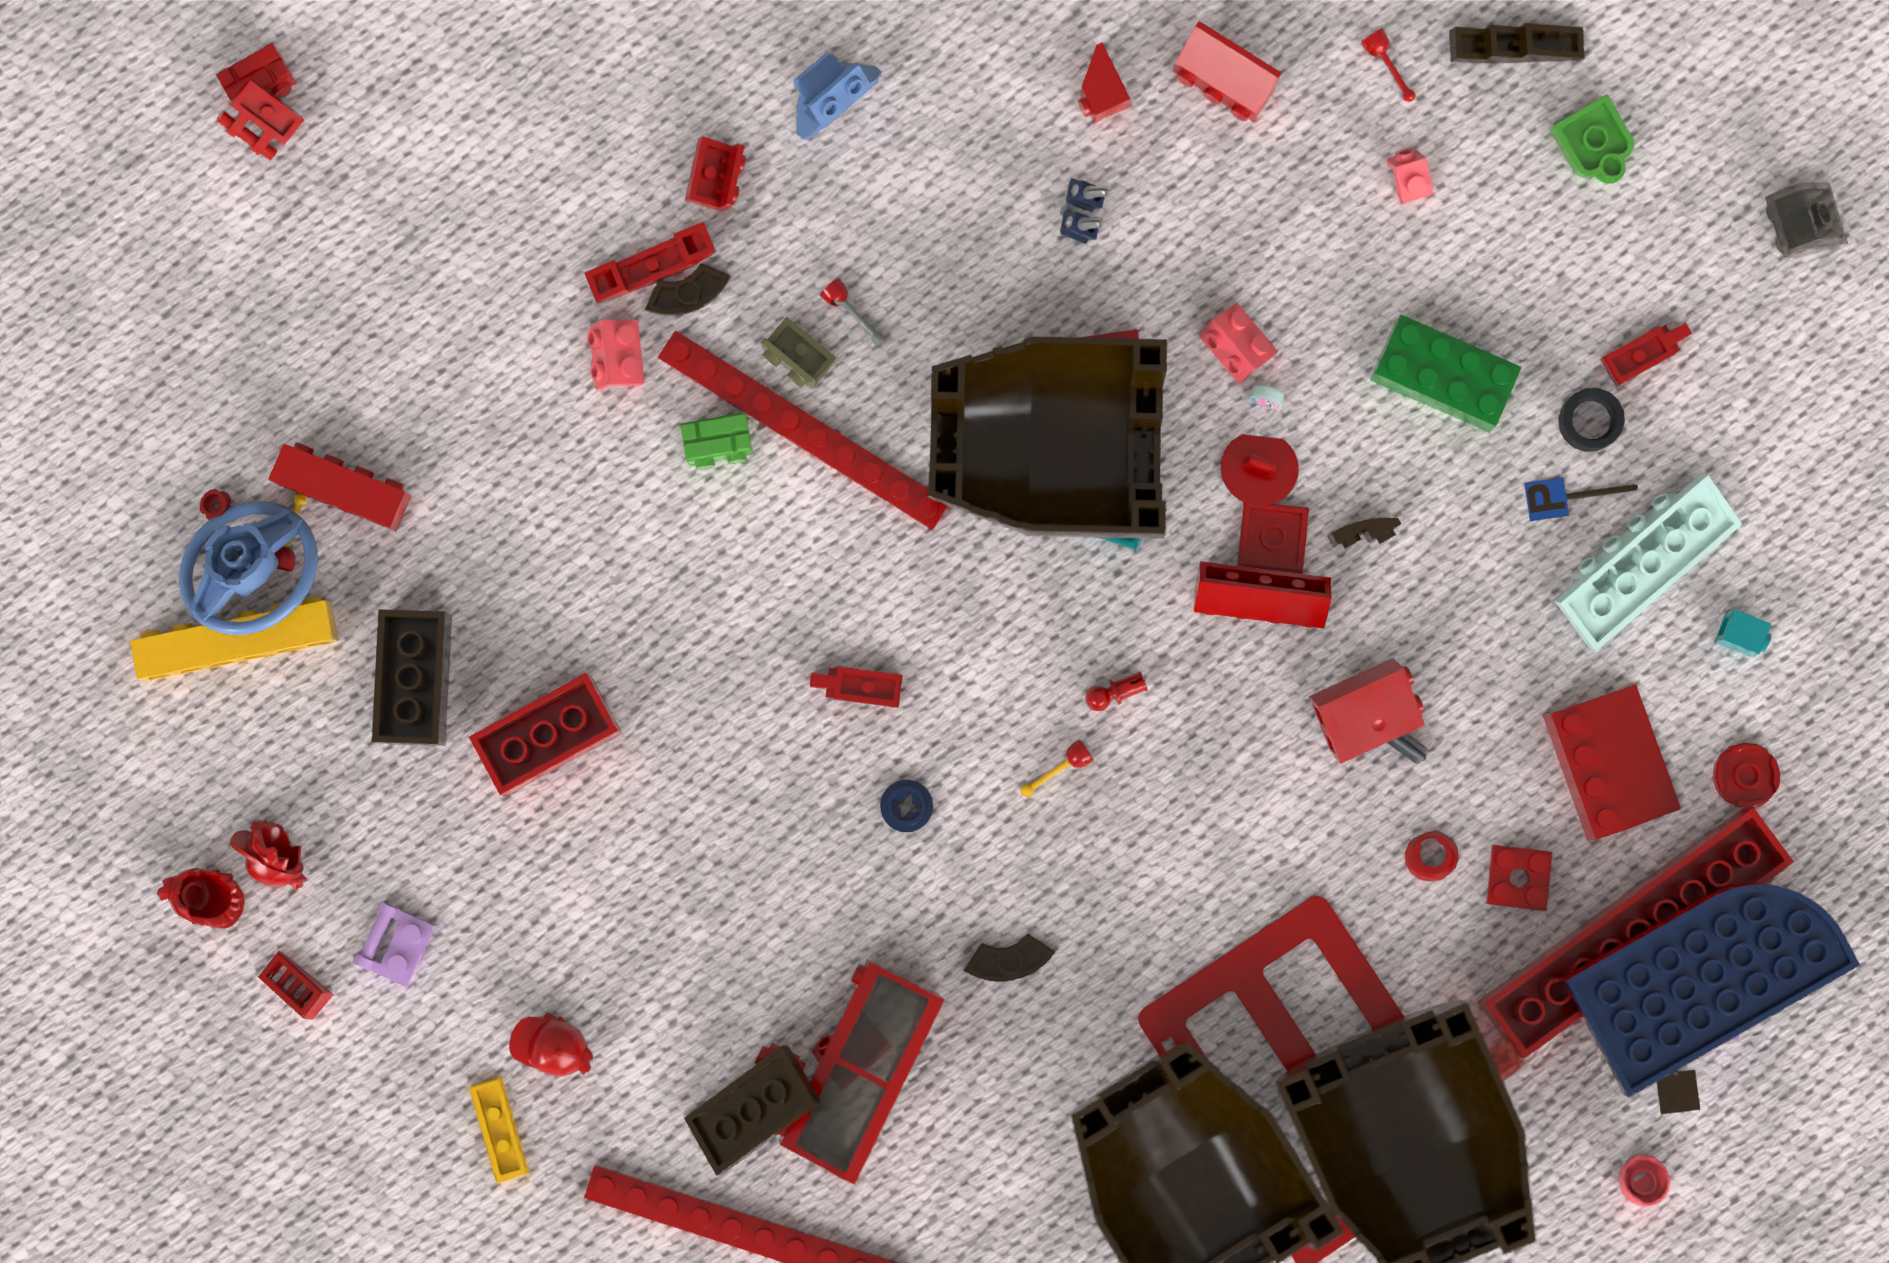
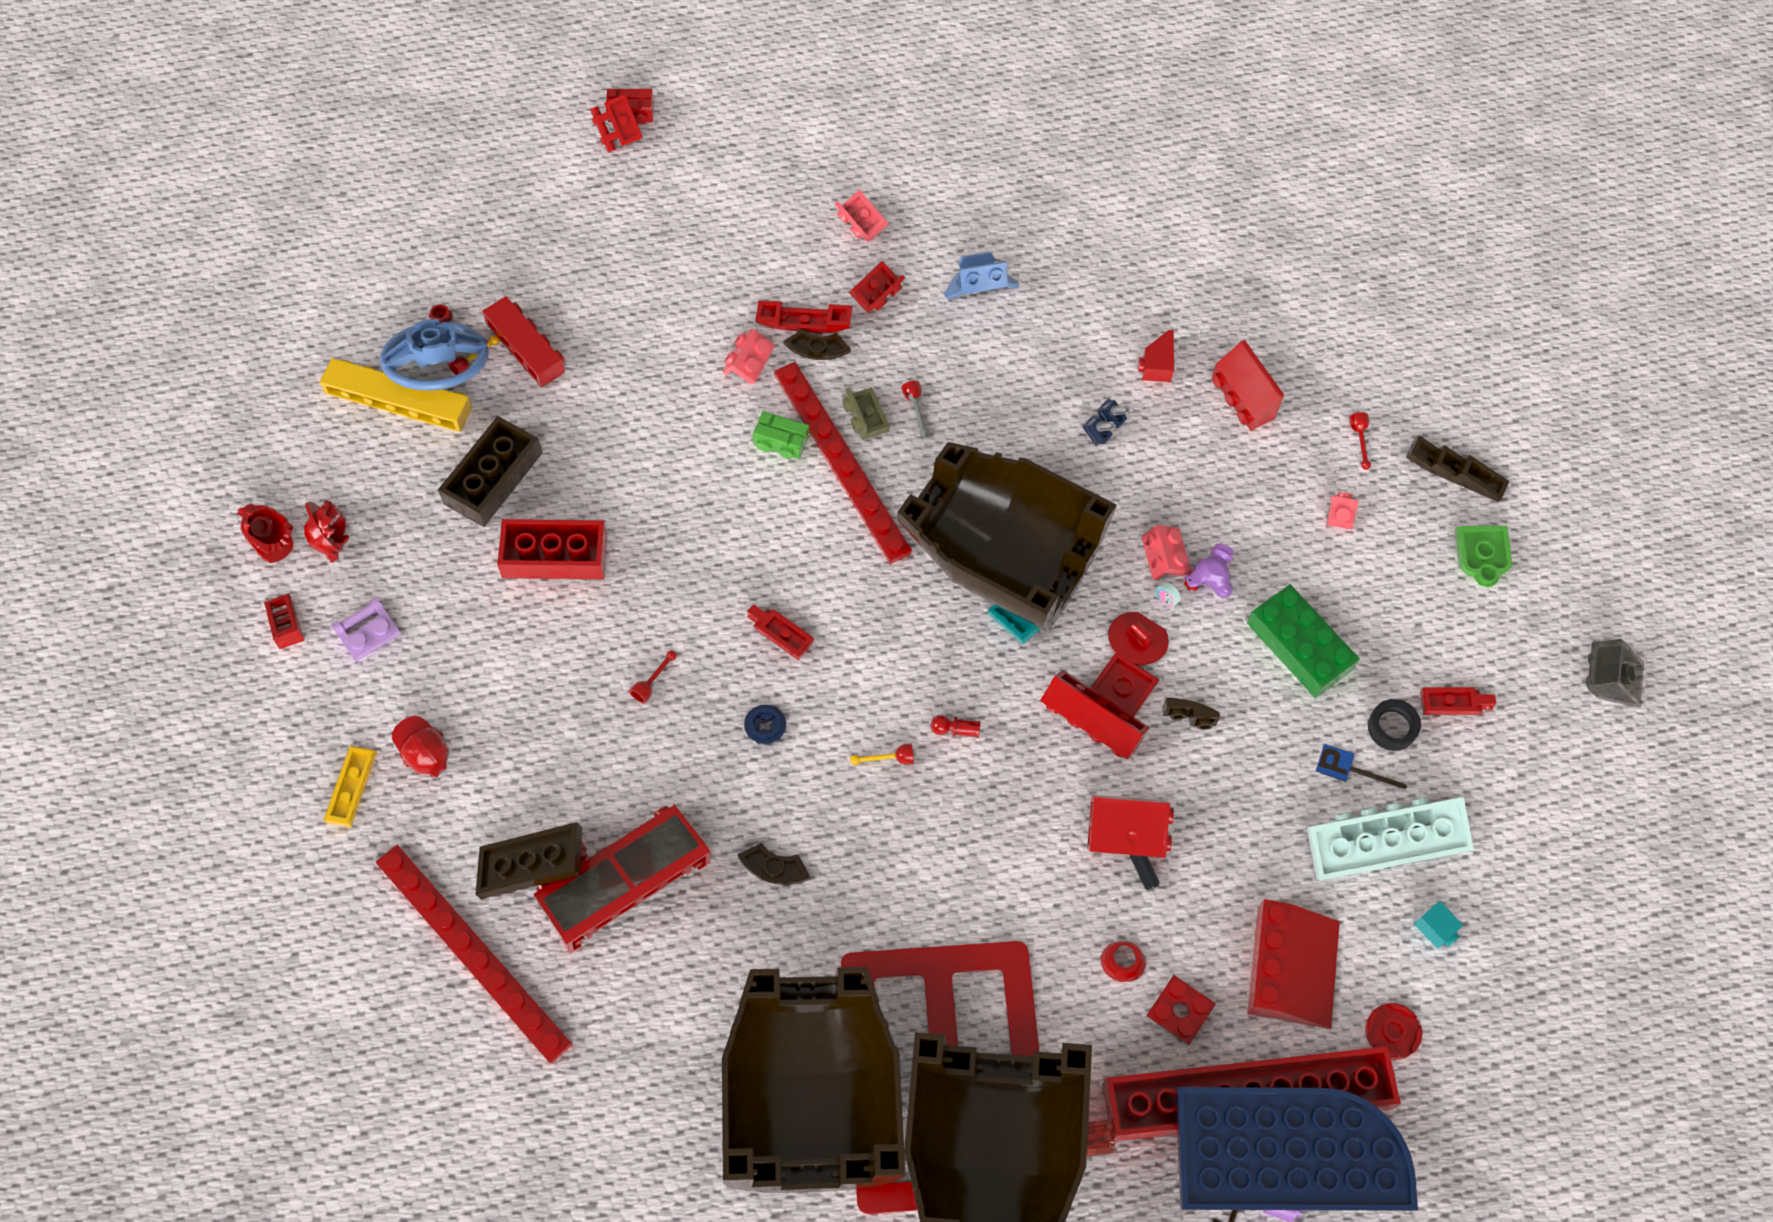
camera: 25 degrees right, 20 degrees down
(639, 82) = (862, 215): none -> coral bracket
(749, 842) = (642, 690): none -> red hinge
(1303, 340) = (1213, 572): none -> medium lavender animal

